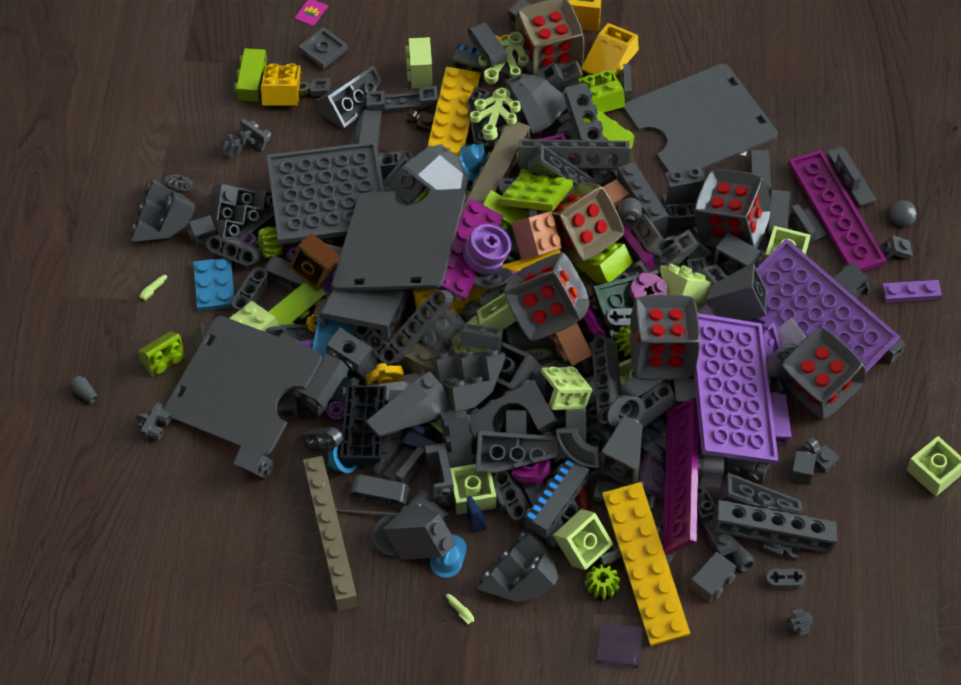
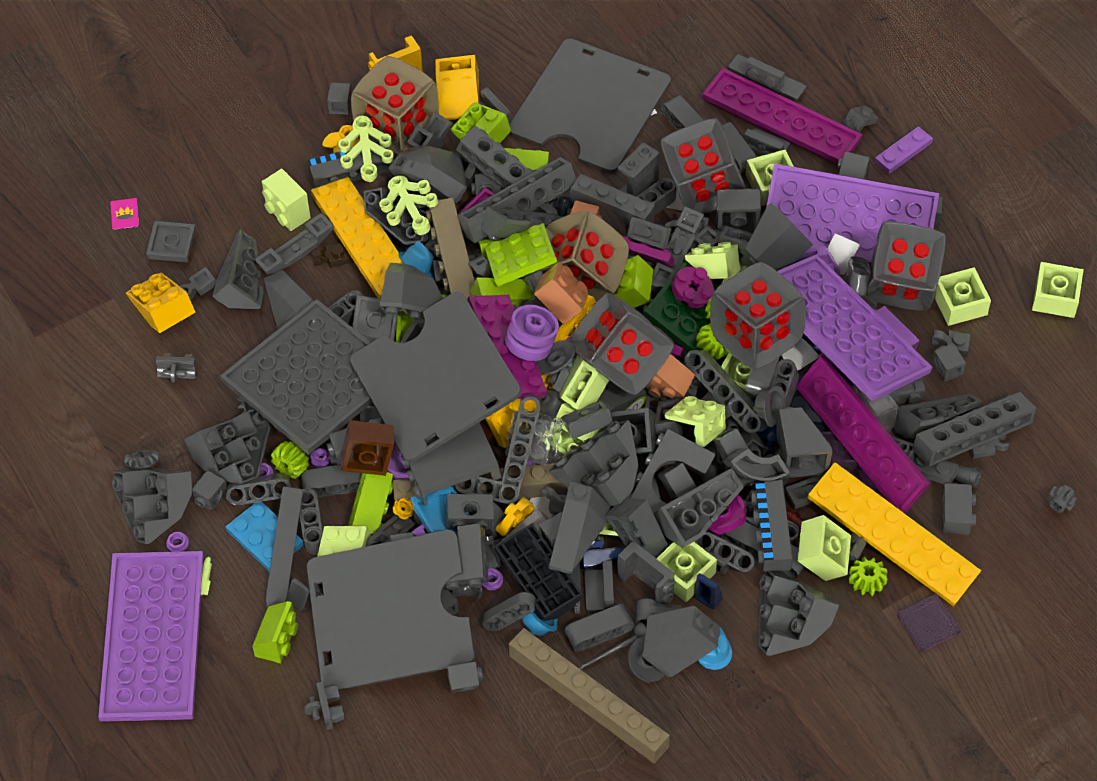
camera: 35 degrees left, 0 degrees up
(83, 389) = (226, 719): dark grey cone -> none
(85, 304) = (152, 636): none -> medium lavender plate
(152, 249) = (177, 537): none -> medium lavender plate
(215, 298) = (283, 546): none -> dark grey piece
(231, 145) = (164, 390): dark grey gear -> none
(250, 75) = (121, 310): lime brick -> none
(463, 612) = (770, 686): yellowish green piece -> none
(487, 44) = (342, 143): dark grey beam -> none
(621, 313) = (688, 321): dark grey beam -> none
(629, 211) = (618, 219): dark grey head -> none
(785, 579) = (1017, 473): dark grey beam -> none
(854, 424) = (962, 296): none -> yellowish green brick
(902, 213) = (838, 84): dark grey hair -> none

